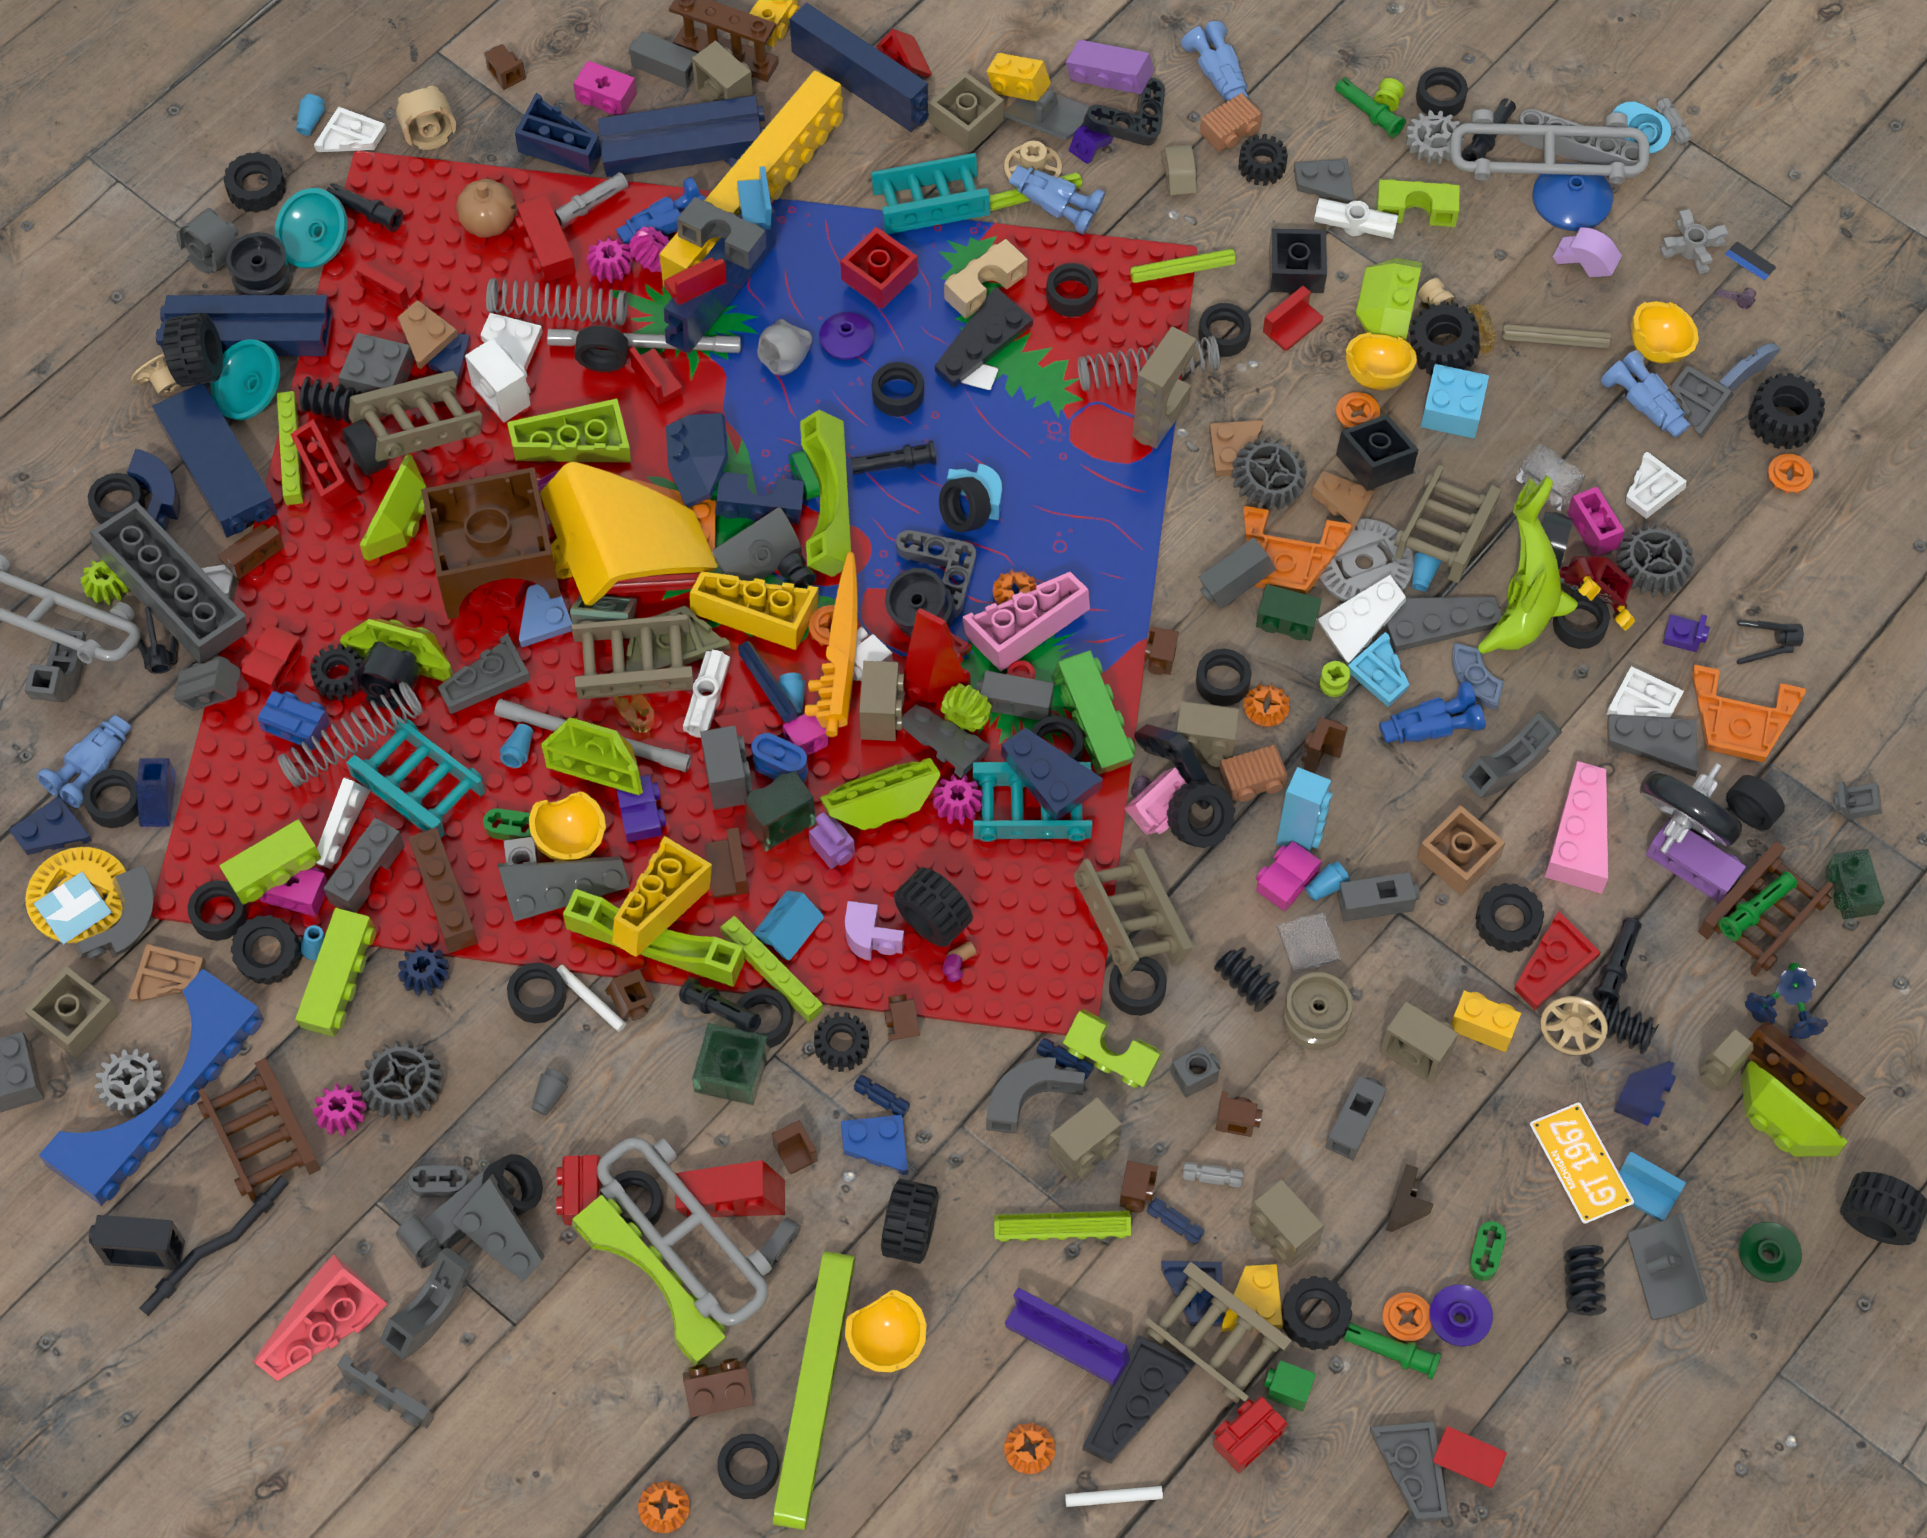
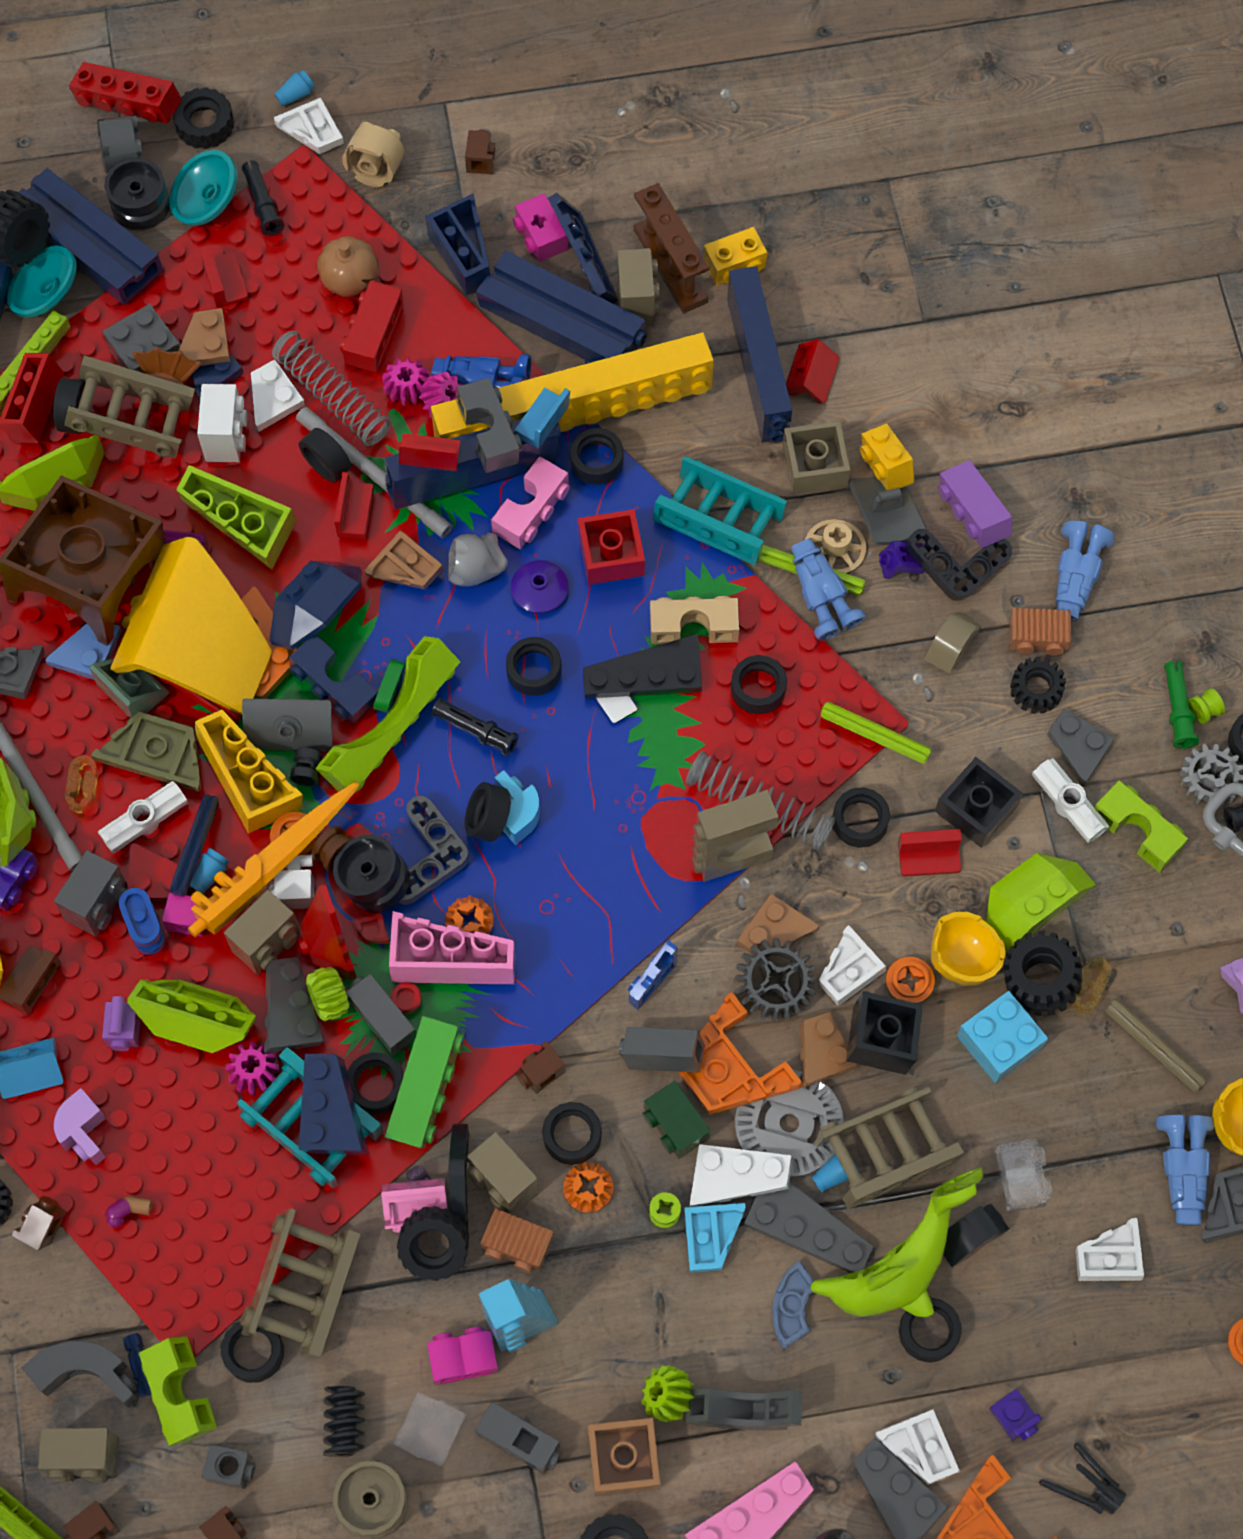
camera: 40 degrees right, 5 degrees up
(175, 201) = (125, 92): none -> red brick
(325, 400) = (83, 340): black piece -> none
(416, 365) = (166, 365): none -> dark orange arm
(581, 204) = (438, 316): light grey pin -> none
(637, 682) = (105, 768): dark tan fence -> none
(652, 80) = (584, 247): none -> dark blue wing
(662, 59) = (609, 230): dark grey brick -> none
(733, 385) = (404, 564): none -> medium nougat wing
(779, 810) = (99, 965): clear green brick -> none
(786, 262) = (520, 522): none -> bright pink arch
(805, 233) = (600, 437): none -> black tyre
(874, 611) = (329, 845): none -> reddish brown wheel
(933, 907) = (137, 1149): black tyre -> none
(1181, 526) = (654, 975): none -> blue wing
(1310, 431) = (850, 968): none -> white wing
(1327, 738) = (585, 1260): reddish brown bracket -> none
(1327, 881) = (490, 1389): dark azure cone -> none
(1433, 718) = (712, 1313): blue piece -> none
(1434, 292) = (1076, 926): tan wheel -> none
(1451, 787) = (667, 1393): none -> lime gear
(1595, 521) = (1023, 1249): dark pink brick -> none
(1600, 578) = (973, 1311): dark red torso -> none
(1656, 573) = (1046, 1312): dark grey gear -> none

